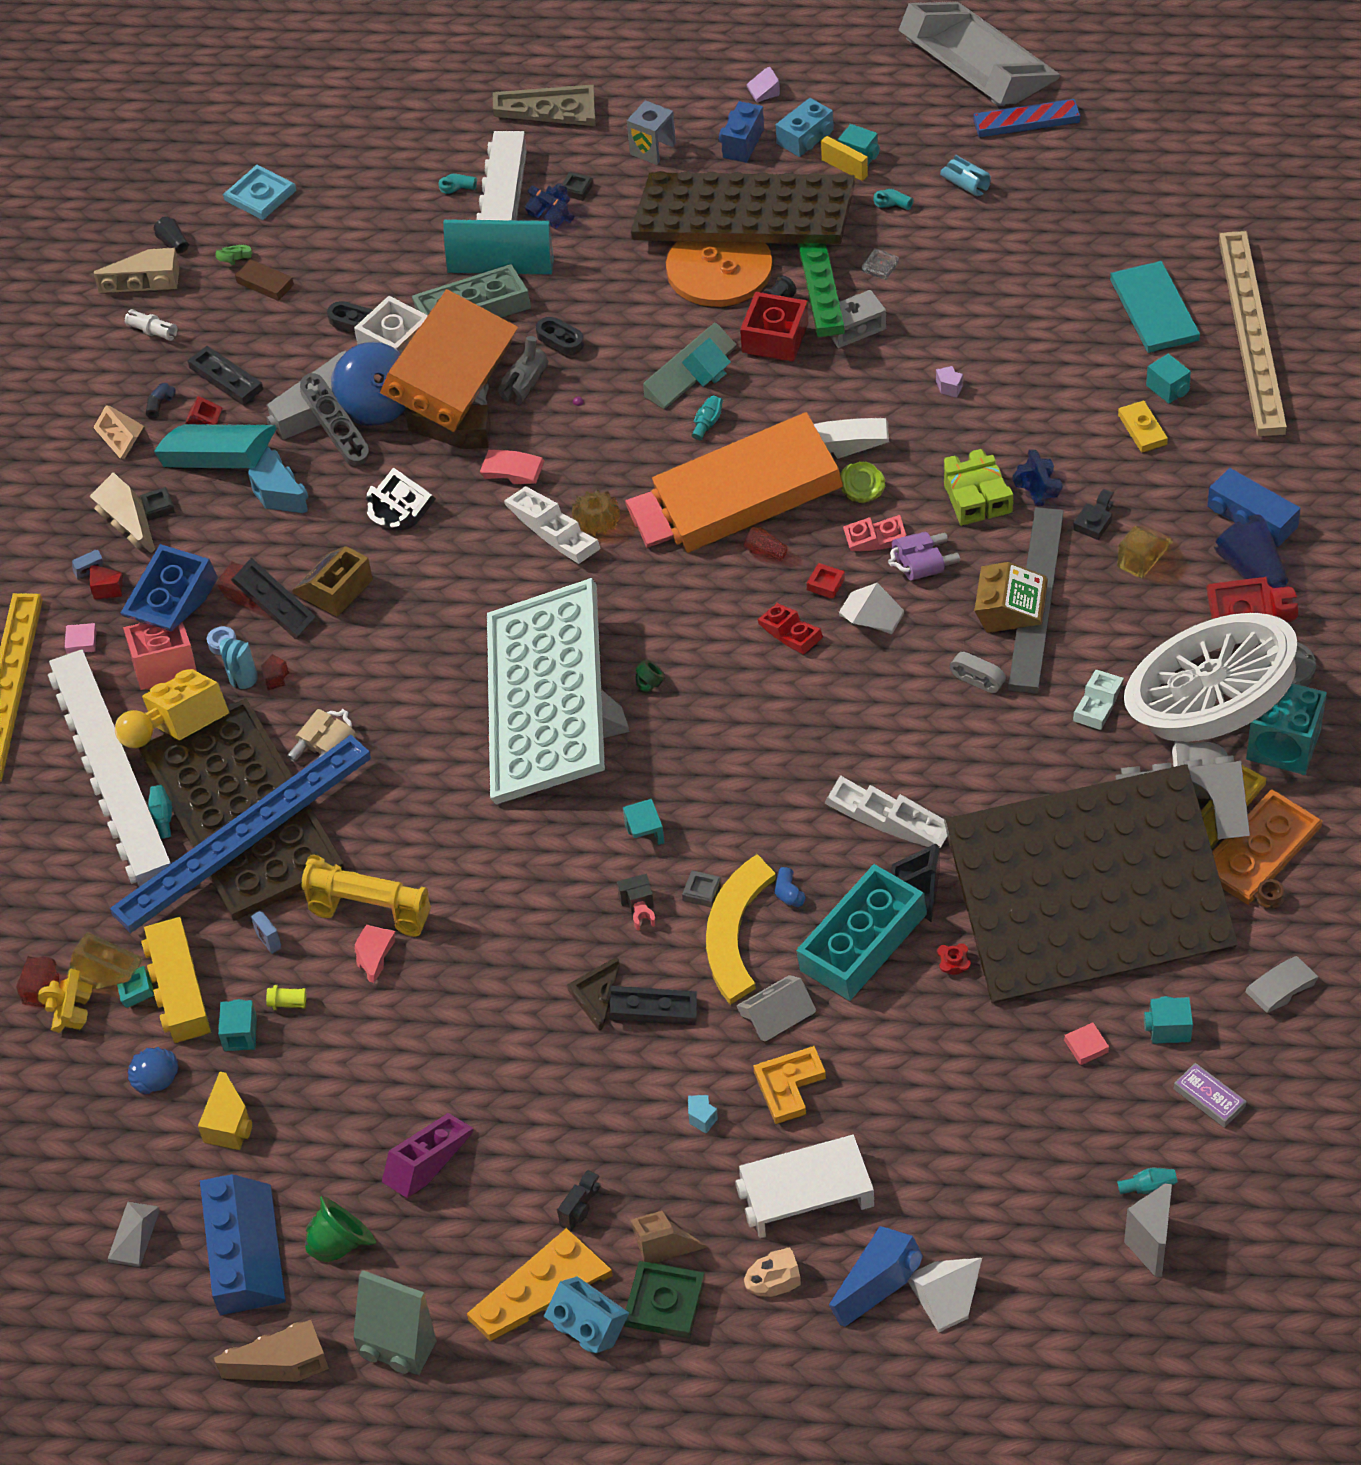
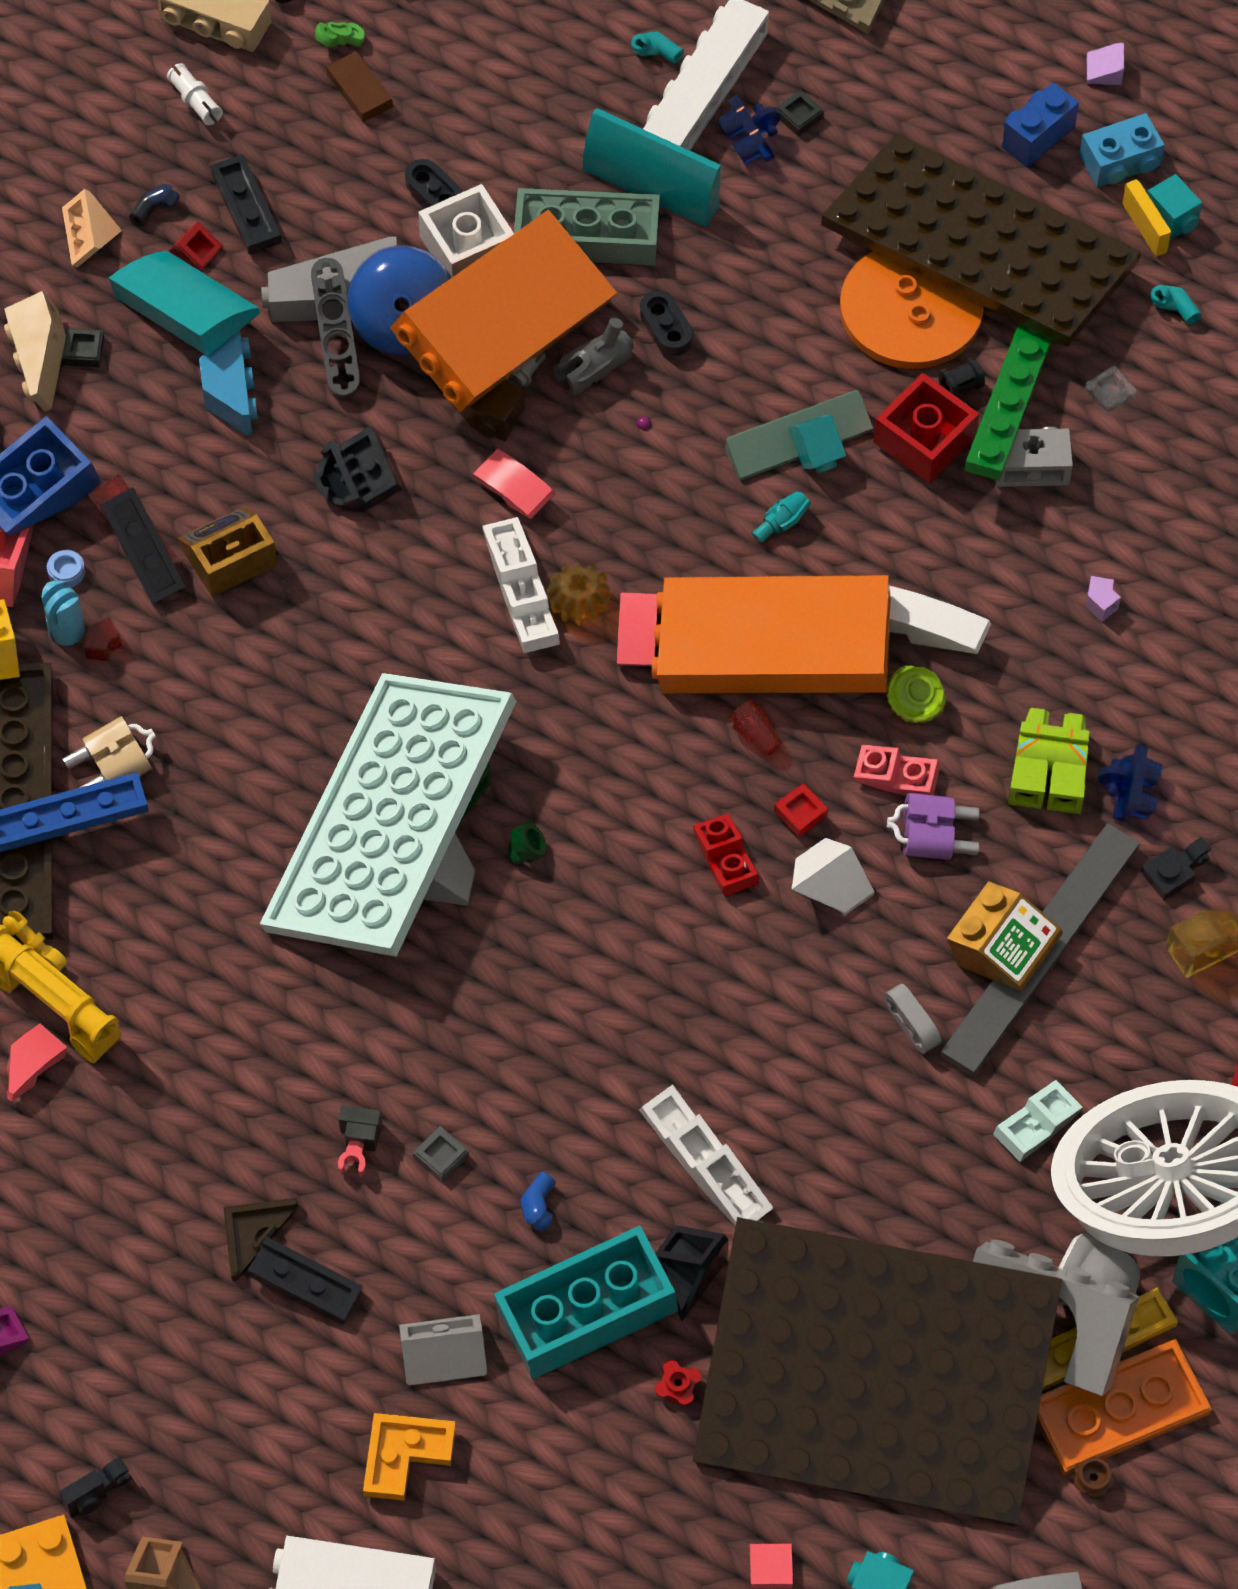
camera: 20 degrees right, 10 degrees up
(643, 820) = (415, 1038): teal panel -> none
(647, 132) = (910, 80): piece -> none
(701, 1113) = (287, 1442): medium azure piece -> none
(725, 923) = (440, 1216): yellow tile -> none

